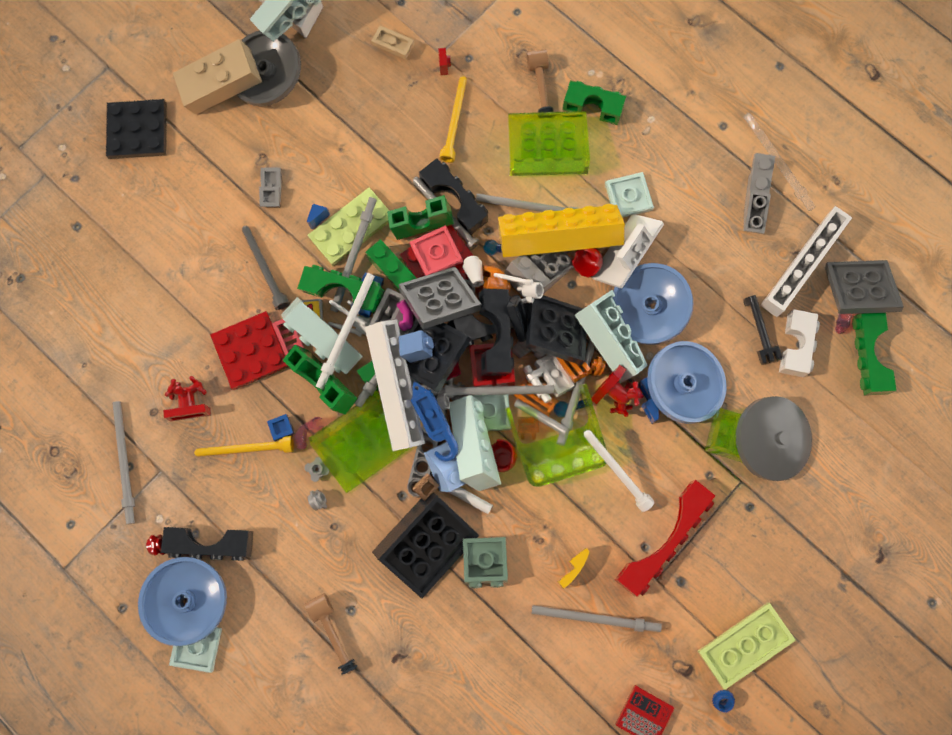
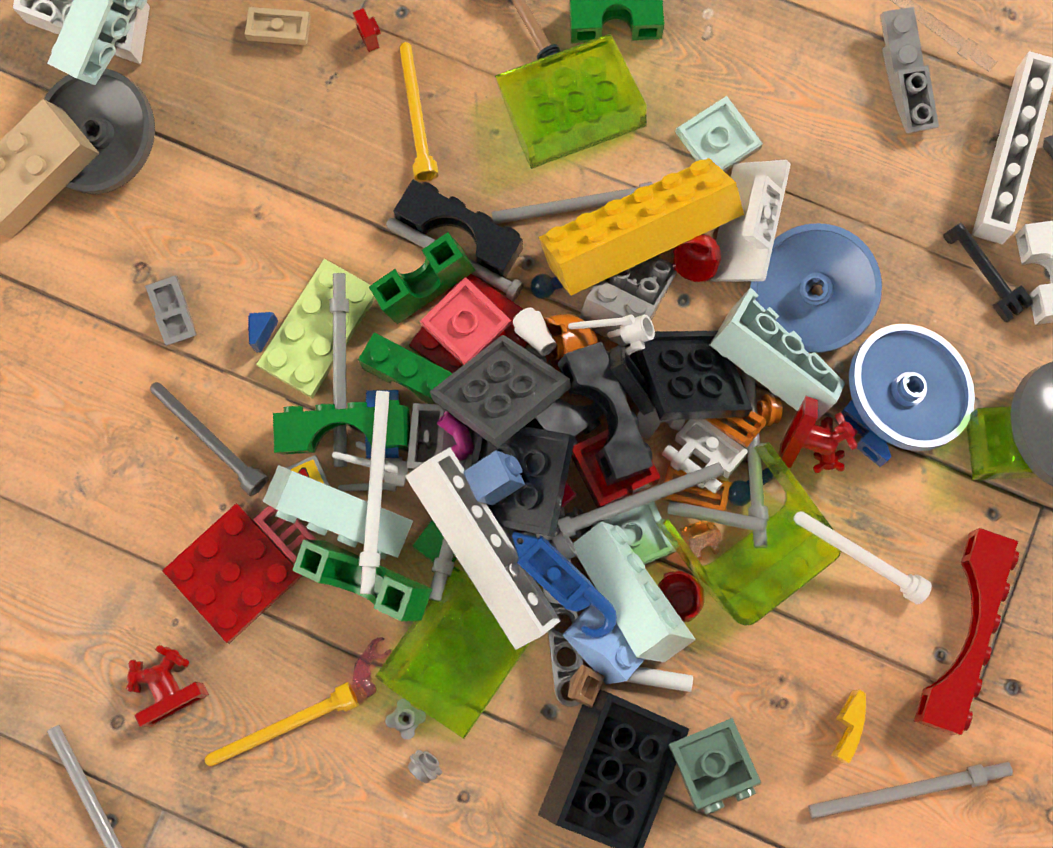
camera: 20 degrees left, 0 degrees up
(280, 427) = (325, 674): blue plate -> none

